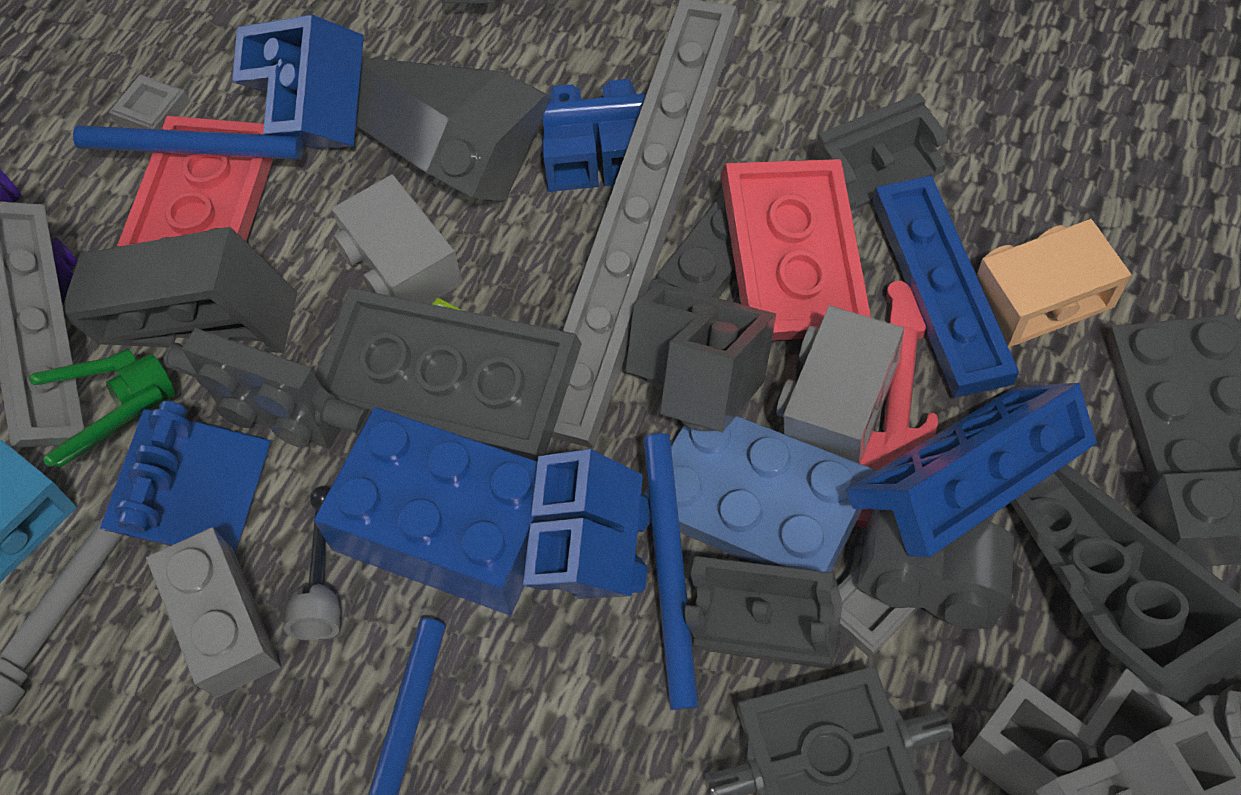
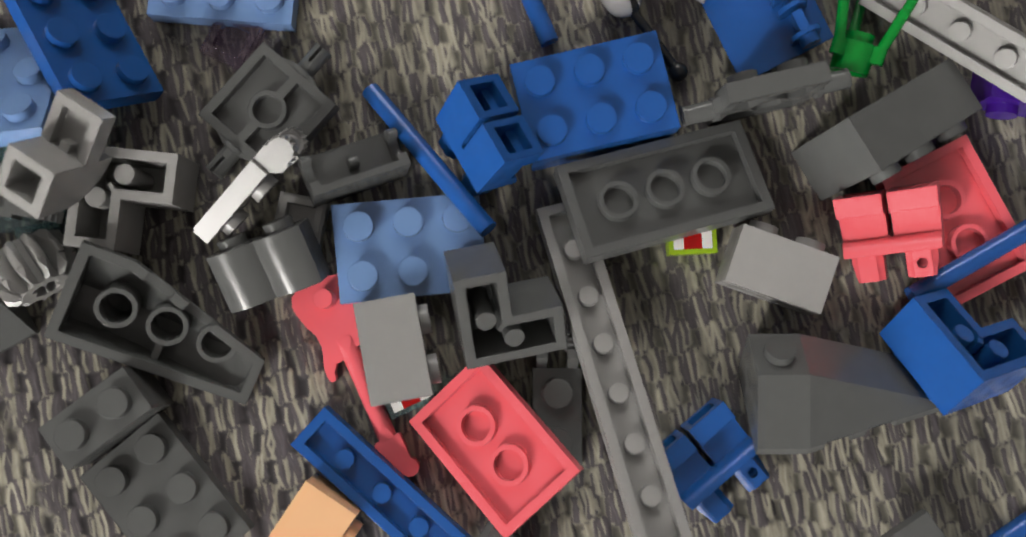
camera: 140 degrees right, 25 degrees up
(257, 197) = (868, 232): none -> coral hips
(903, 657) = (252, 182): none -> hinge
(978, 464) = (263, 348): blue fence -> none

